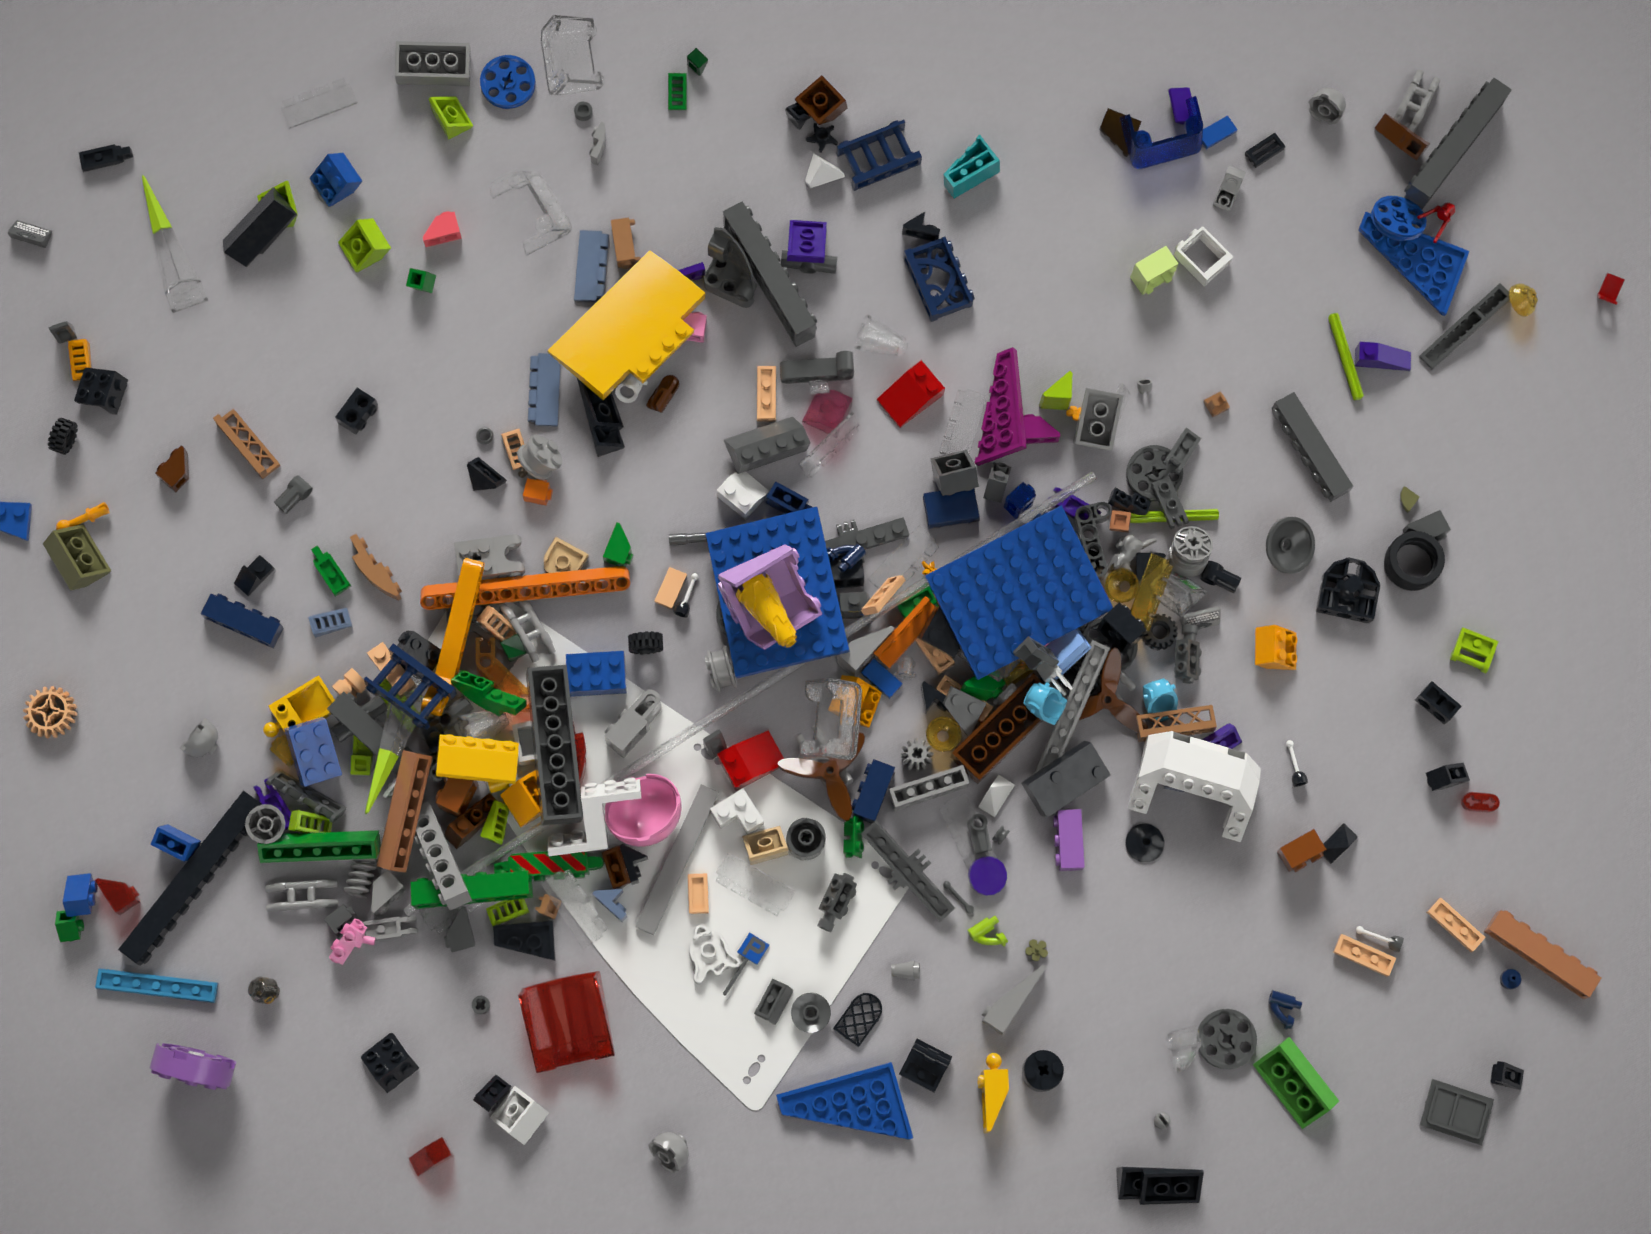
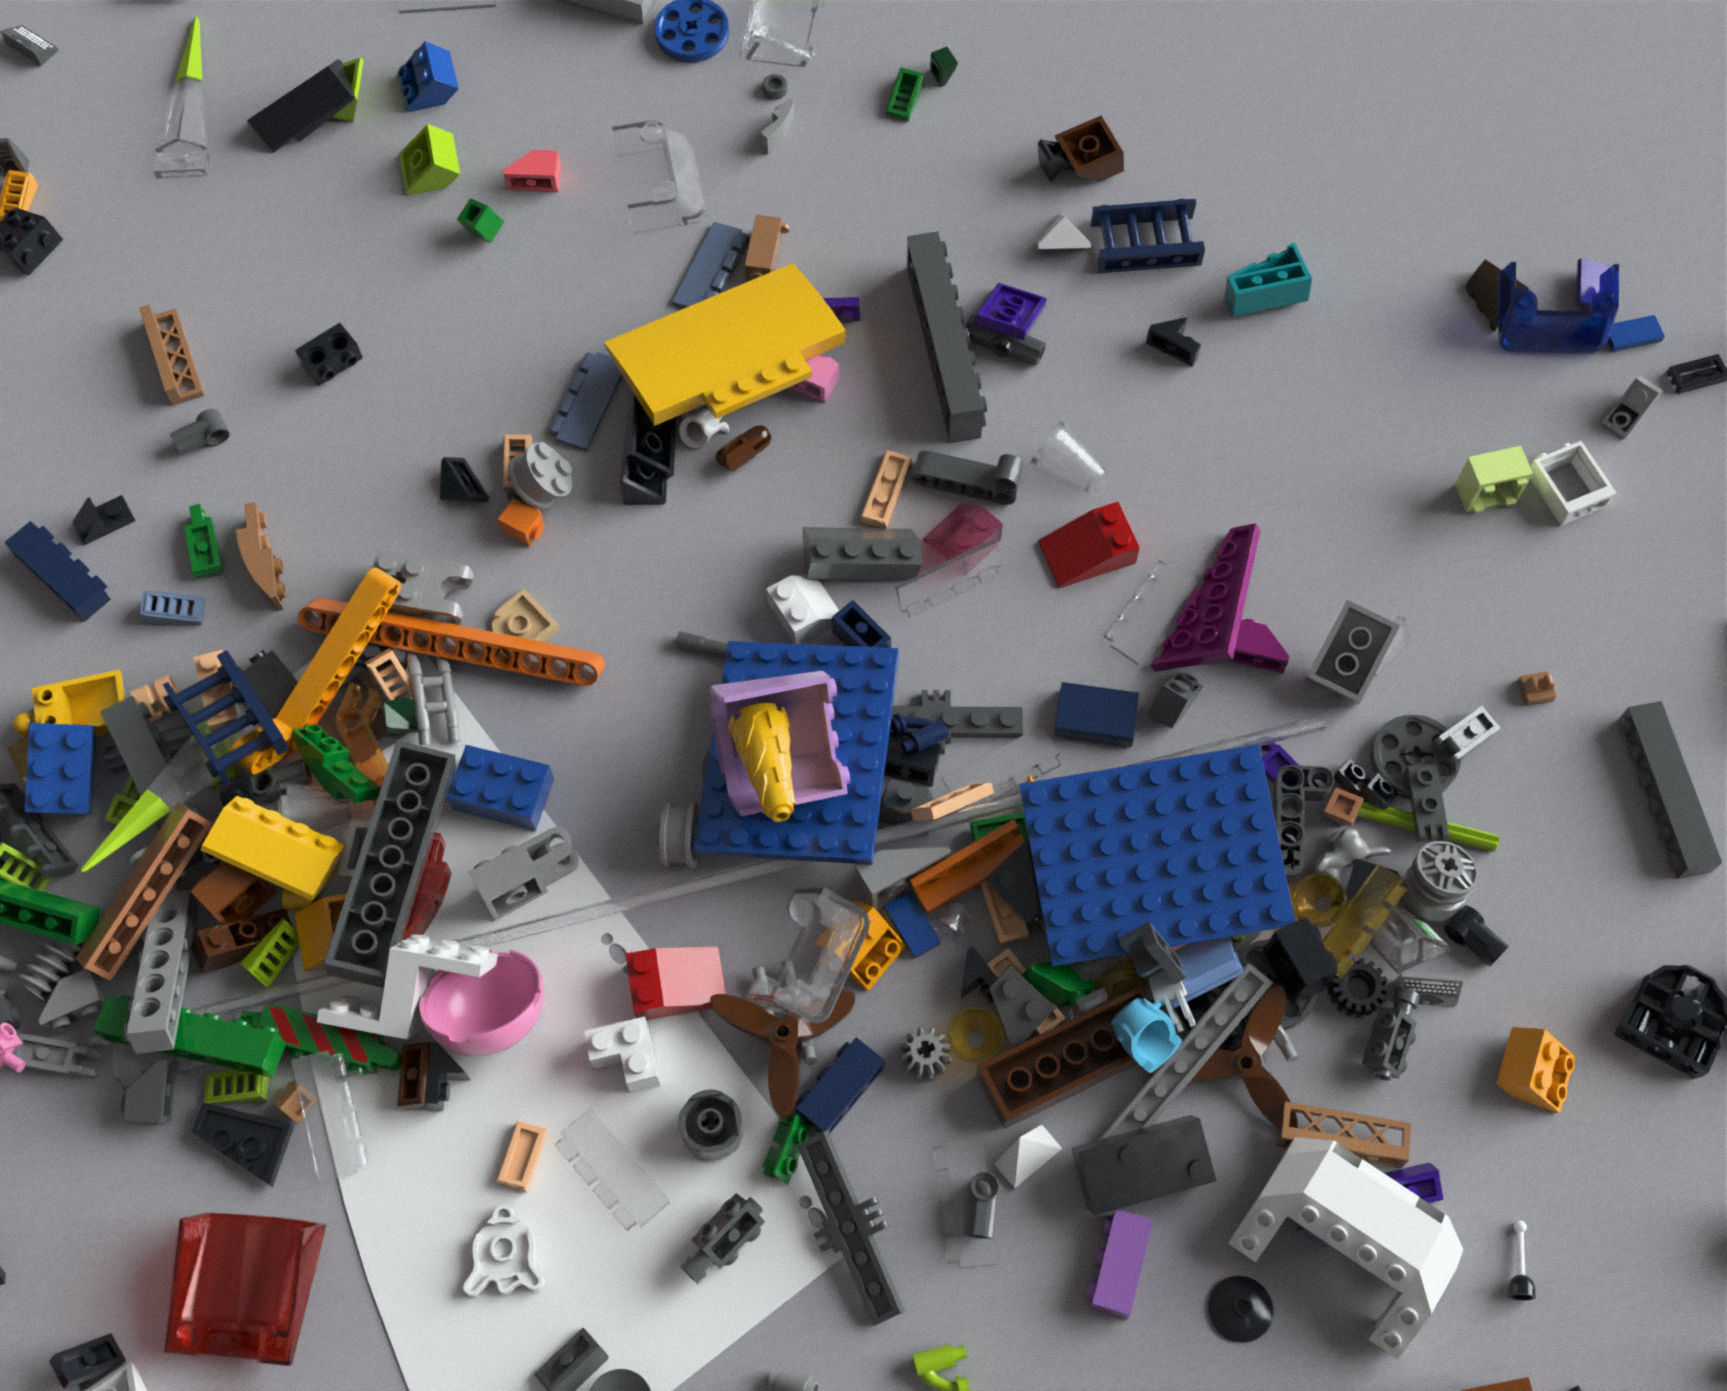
camera: 25 degrees right, 10 degrees down
(175, 470) = (66, 358): reddish brown slope -> none
(450, 115) = (603, 46): lime slope -> none
(481, 998) = (144, 1220): dark grey bush -> none
(484, 429) = (484, 441): dark grey piece -> none
(607, 899) = (384, 1119): sand blue slope -> none
(618, 548) = (601, 628): green slope -> none
(645, 642) = (586, 765): black tyre -> none
(670, 588) = (654, 705): light nougat tile -> none
(677, 860) = (509, 1096): light grey tile -> none
(682, 608) = (659, 736): hinge -> none
(714, 743) = (628, 936): dark grey slope -> none
(735, 274) = (894, 293): dark grey panel -> none
(752, 950) = (570, 1272): piece -> none
(765, 845) = (647, 1116): tan slope -> none
(819, 386) = (960, 496): clear tile -> none
(822, 137) = (1077, 196): black animal -> none
(928, 788) = (925, 1109): light grey brick -> none
(931, 302) = (1156, 435): dark blue fence -> none
(954, 472) = (1116, 665): dark grey brick -> none
(969, 908) = (928, 1321): dark grey hinge -> none
(987, 875) = (972, 1277): dark purple tile -> none
(1000, 835) = (1014, 1219): dark grey bush -> none
(1020, 500) = (1200, 727): clear blue brick -> none
(1059, 394) = (1301, 603): lime slope -> none
(1073, 412) = (1318, 637): light orange plant -> none
(1144, 385) = (1435, 631): light grey hinge -> none
(1160, 697) = (1330, 1085): medium azure helmet -> none
(1297, 548) = (1611, 922): dark grey dish -> none

